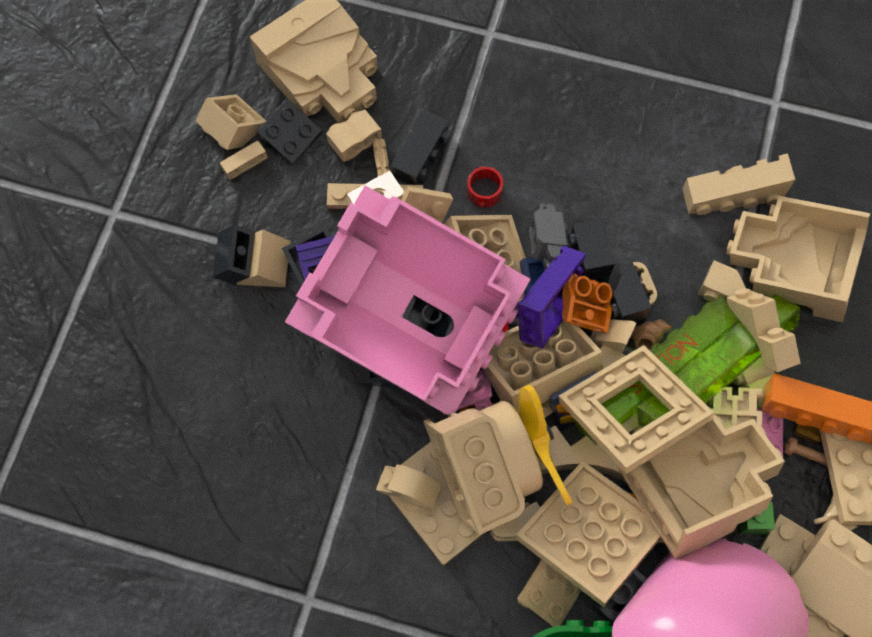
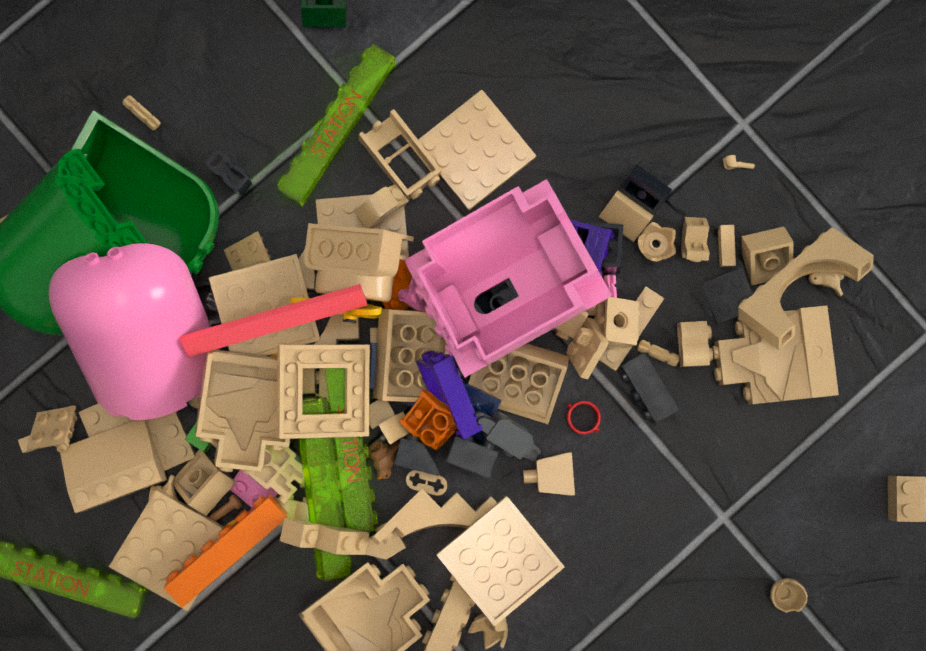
camera: 115 degrees right, 15 degrees up
(159, 200) = (731, 163): none -> tan hand
(218, 63) = (827, 279): none -> tan animal
(255, 188) = (695, 239): none -> tan brick
(279, 207) = (664, 236): none -> tan piece
(286, 83) = (828, 253): none -> tan arch
(290, 440) = (476, 149): none -> tan plate
(330, 540) = (386, 132): none -> tan door
(349, 593) = (336, 125): none -> clear neon green brick
(553, 181) = (552, 474): none -> tan torso
(608, 492) = (273, 320): none -> coral tile
(665, 169) = (500, 560): none -> plate
(673, 263) = (425, 513): none -> tan arch
(722, 151) = (492, 633): none -> tan piece
(801, 489) = (202, 483): none -> tan slope

